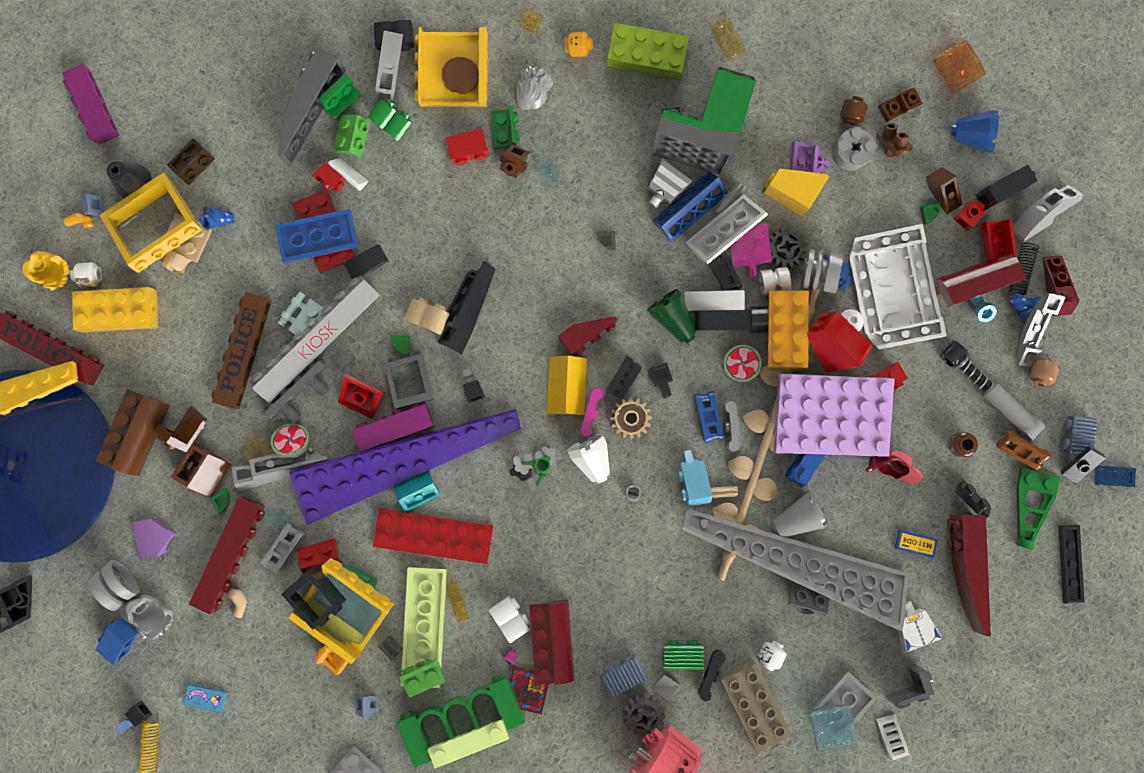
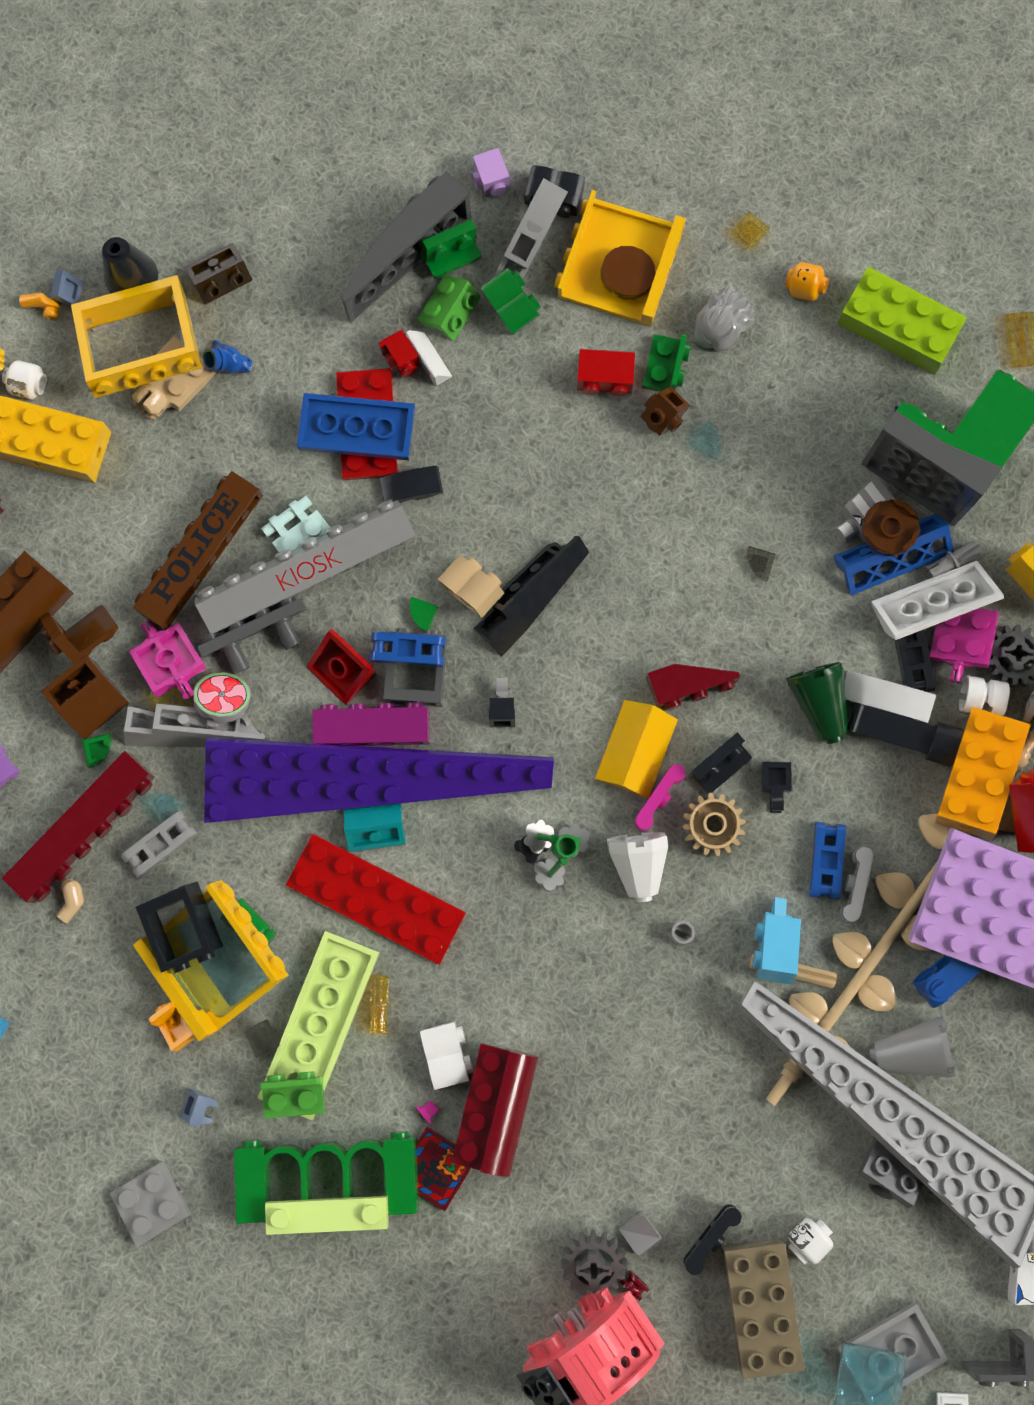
camera: 25 degrees right, 5 degrees down
(90, 104) = (111, 155): magenta brick -> none
(246, 428) = (167, 660): none -> dark pink plate
(318, 554) = (205, 869): red bracket -> none
(348, 36) = (490, 173): none -> lavender brick
(399, 371) = (407, 649): none -> blue plate
(622, 676) = (582, 1194): sand blue brick -> none
(673, 718) = (635, 1284): none -> dark red bush
(682, 191) = (890, 527): none -> reddish brown tile
(683, 656) = (679, 1196): green brick -> none
(742, 363) = (900, 800): tile -> none

